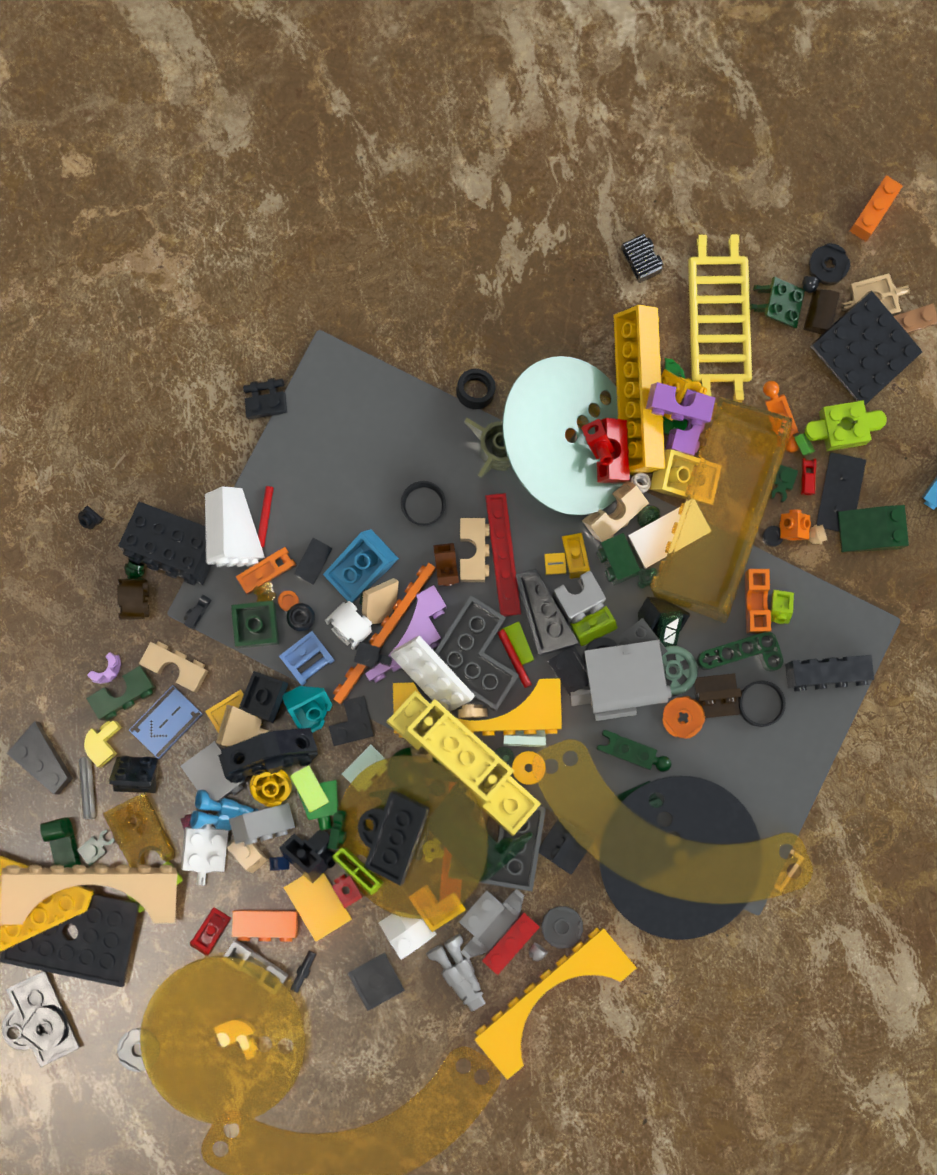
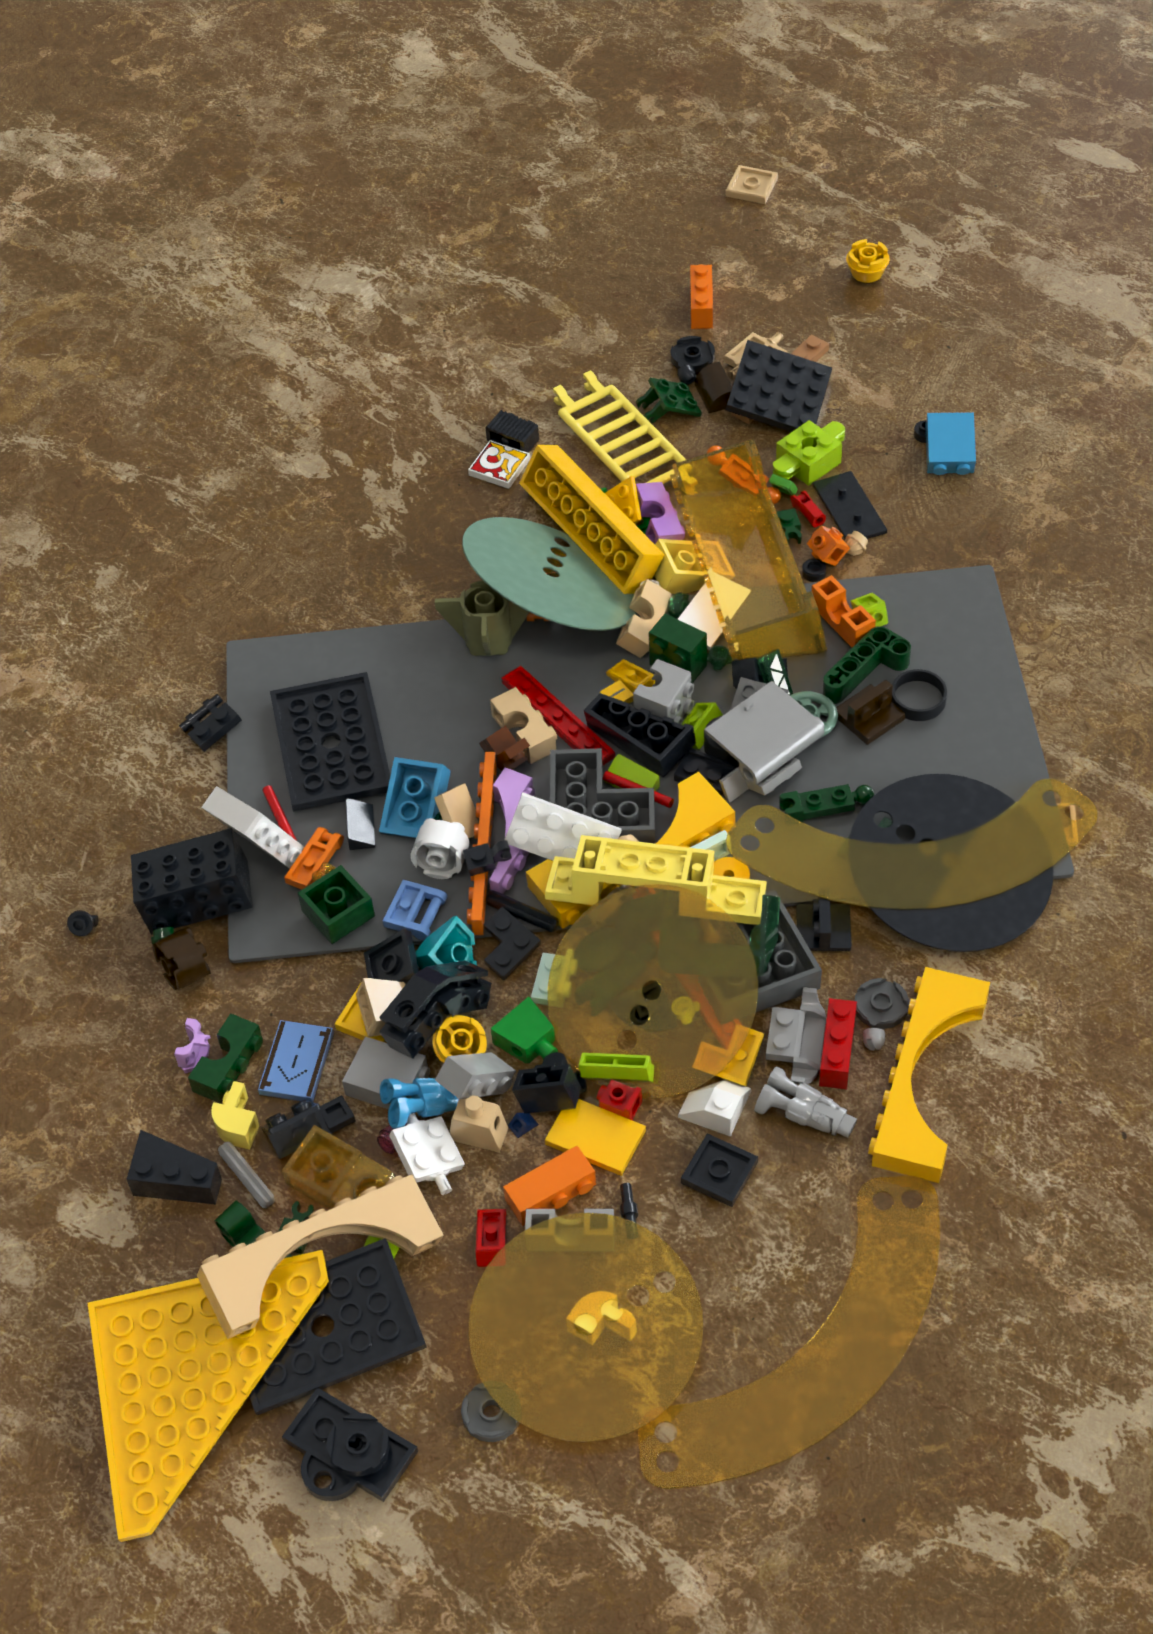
camera: 25 degrees left, 30 degrees down
(158, 657) = (292, 994): tan arch -> none
(166, 781) = (337, 1114): none -> black plate
(193, 616) = (262, 937): black plate -> none
(287, 600) = (360, 872): orange tile -> none
(295, 621) = (382, 873): black cone -> none
(309, 789) = (504, 1018): slope -> none
(337, 833) = (569, 1046): dark green plate -> none
(342, 443) = (324, 709): none -> black plate
(375, 704) = (522, 911): none -> black axle
(393, 836) = (631, 997): black plate -> none
(420, 484) = (438, 698): black tyre -> none
(479, 375) = (423, 594): black tyre -> none
(599, 442) = (584, 563): red bracket -> none
(614, 281) = (499, 464): none -> tile
(618, 470) = (613, 581): red arch -> none
(663, 400) = (621, 496): medium lavender arch -> none
(695, 717) = (851, 757): orange plate -> none
(829, 672) = (958, 631): black wedge -> none
(873, 529) = (905, 510): dark green slope -> none

